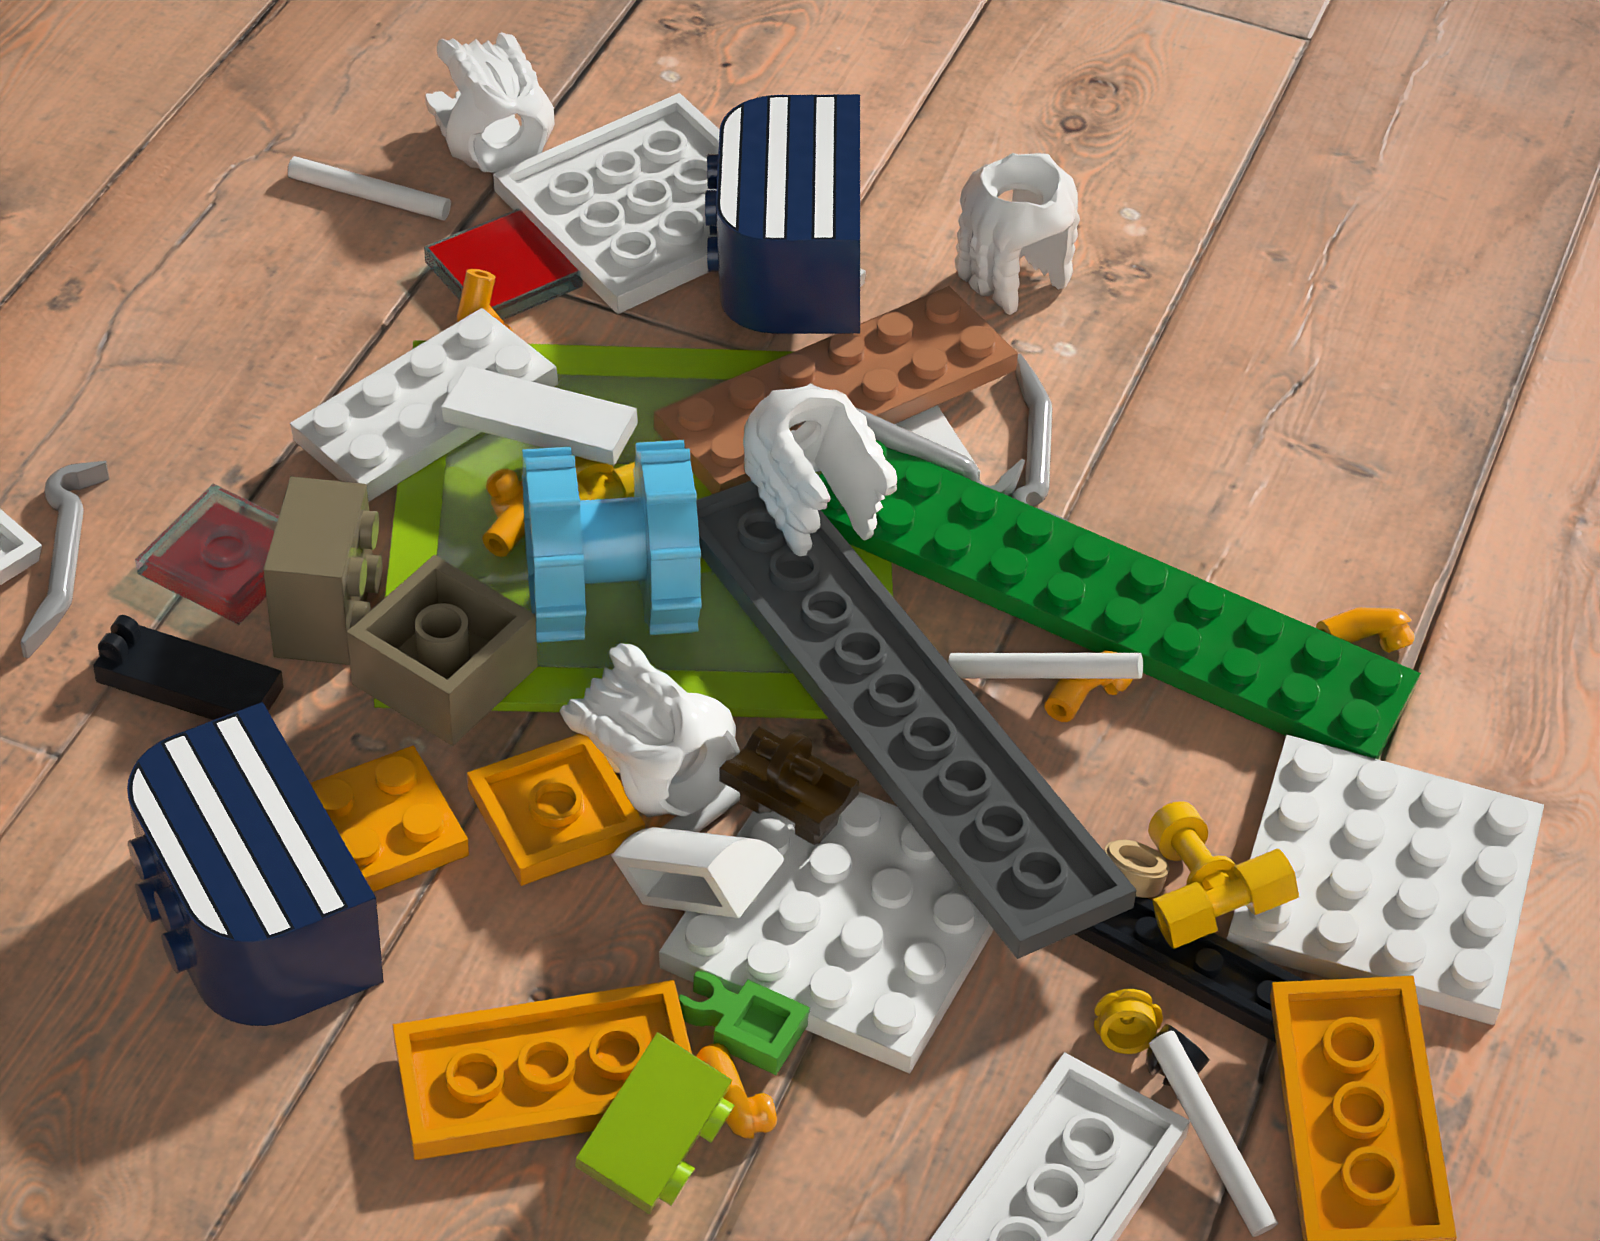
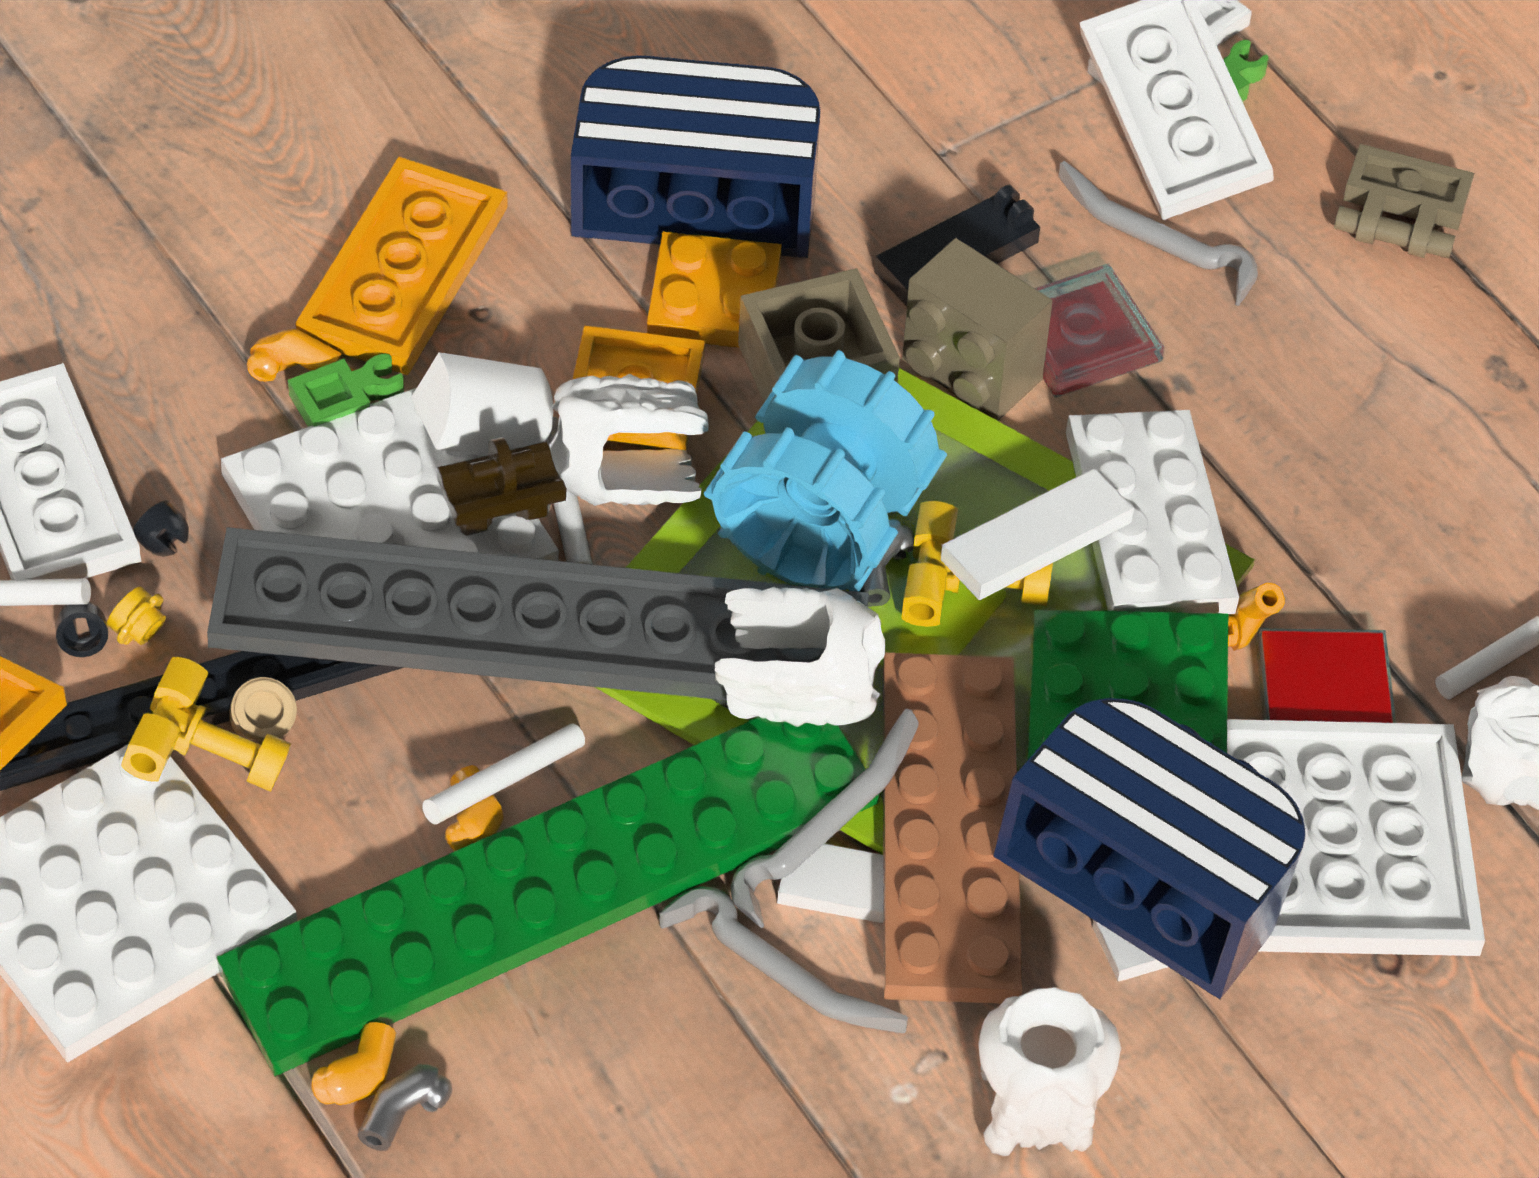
camera: 125 degrees right, 5 degrees up
(509, 509) = (972, 507): light orange arm -> none
(633, 331) = (1146, 657): none -> green plate
(655, 1123) = (283, 266): lime brick -> none
(1028, 1072) = (160, 528): none -> black hinge
(1358, 588) = (396, 1097): none -> flat silver arm

